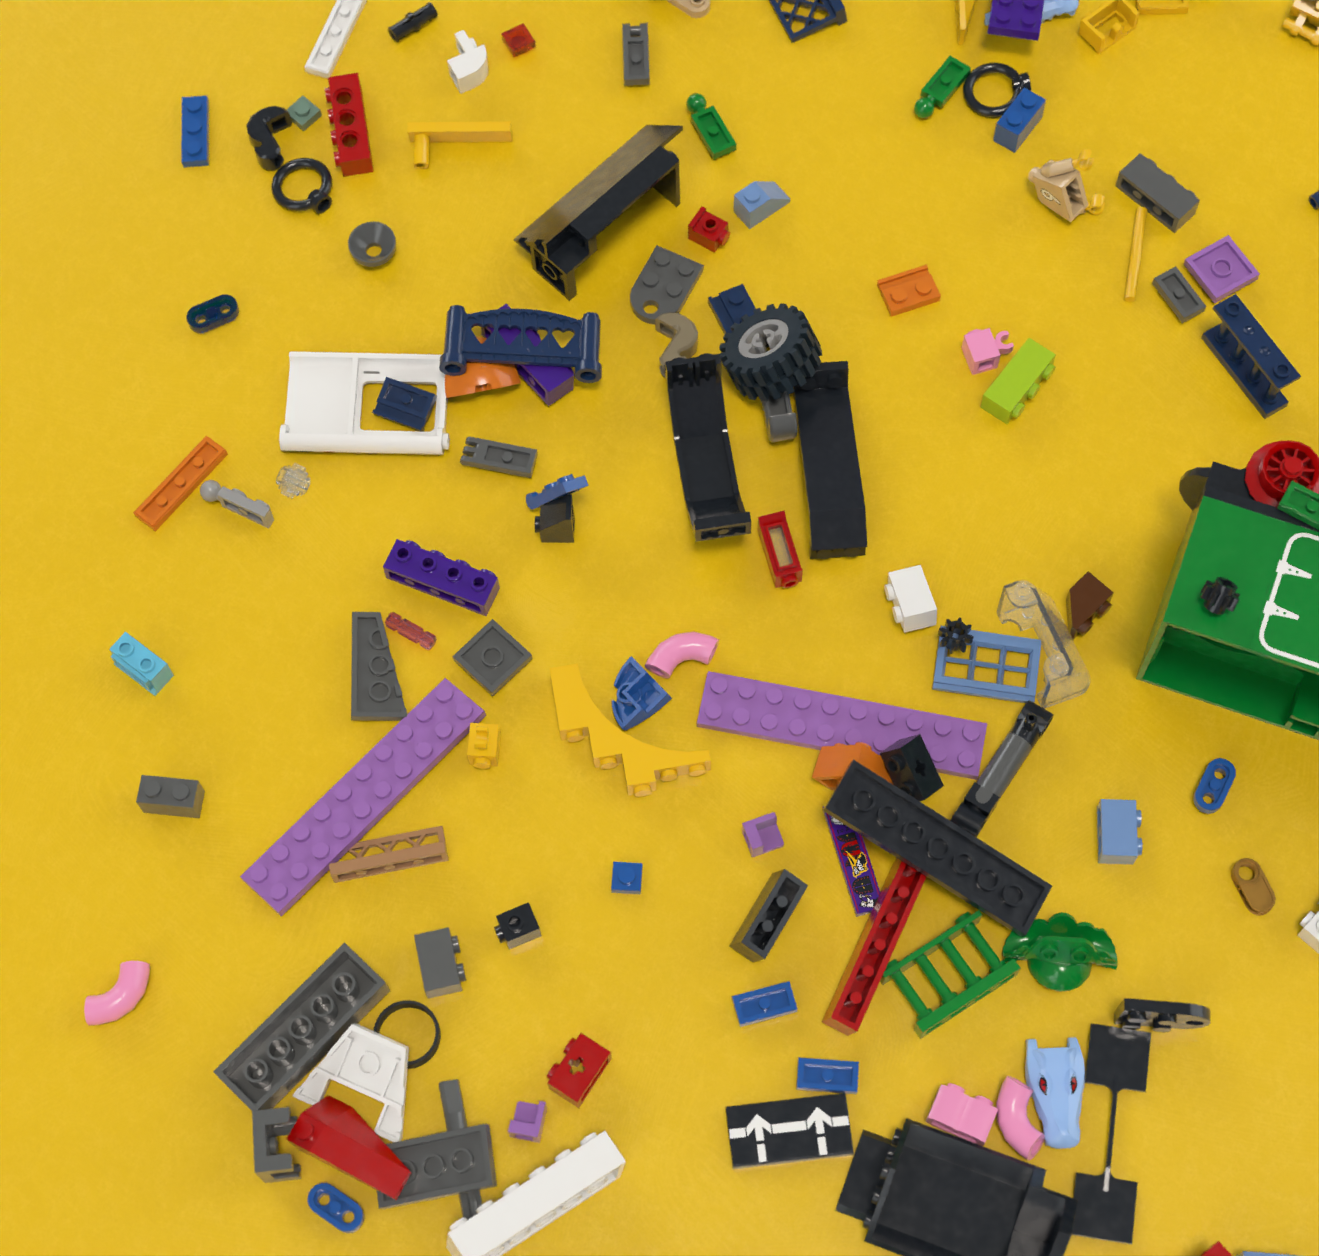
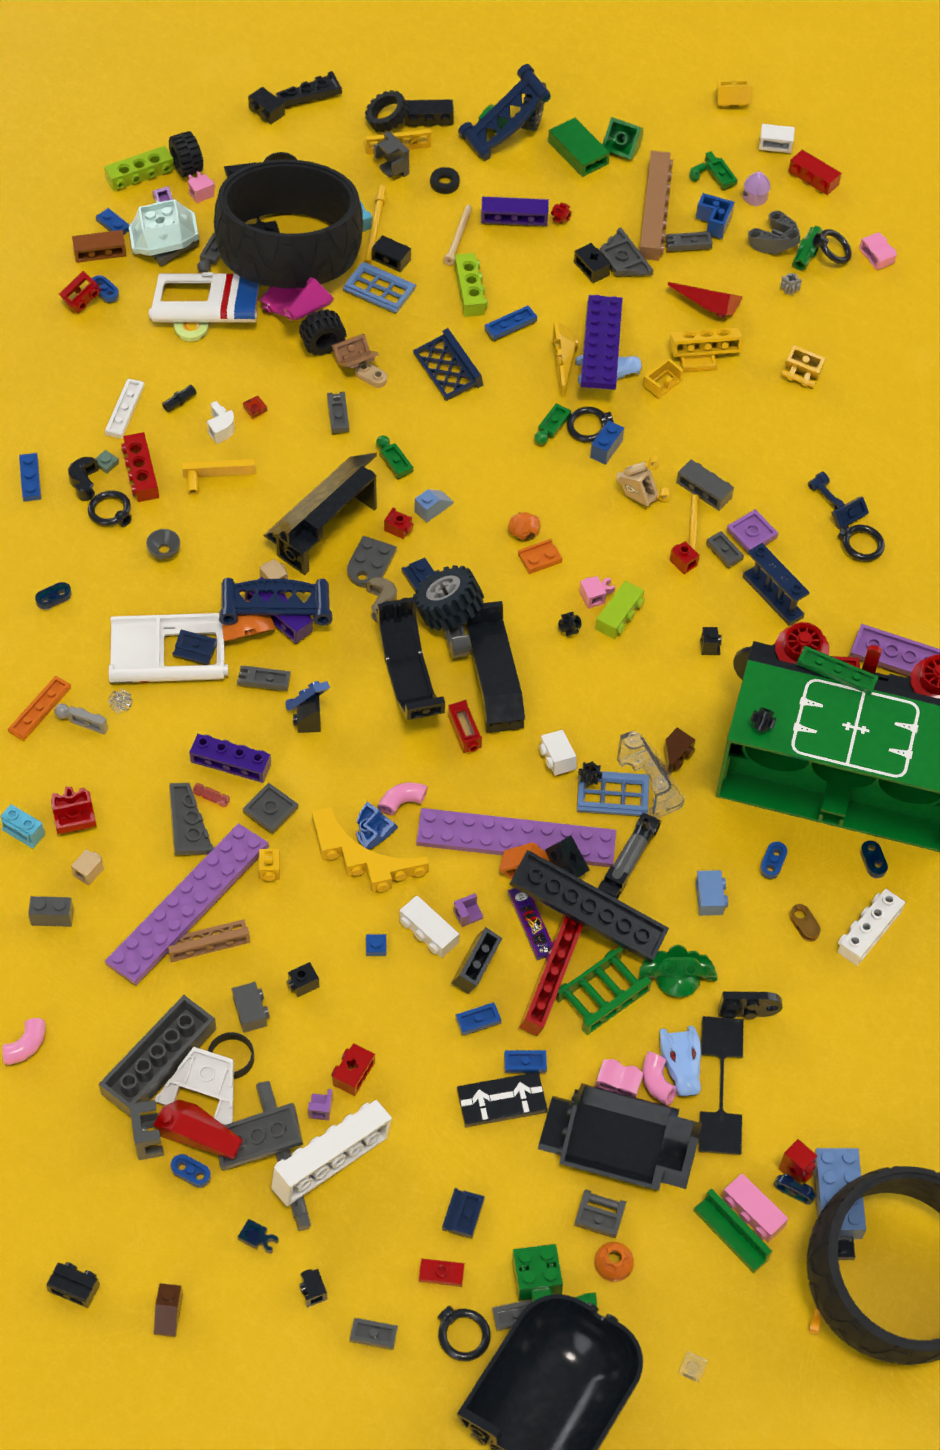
camera: 10 degrees left, 10 degrees down
(213, 644) = (73, 810): none -> red plate
(228, 731) = (87, 867): none -> tan brick
(524, 295) = (273, 570): none -> tan brick
(704, 857) = (429, 927): none -> white brick
(889, 243) = (524, 525): none -> orange hair
(943, 398) = (569, 623): none -> black gear
(1118, 304) = (684, 557): none -> red brick
(1147, 438) = (710, 641): none -> black brick

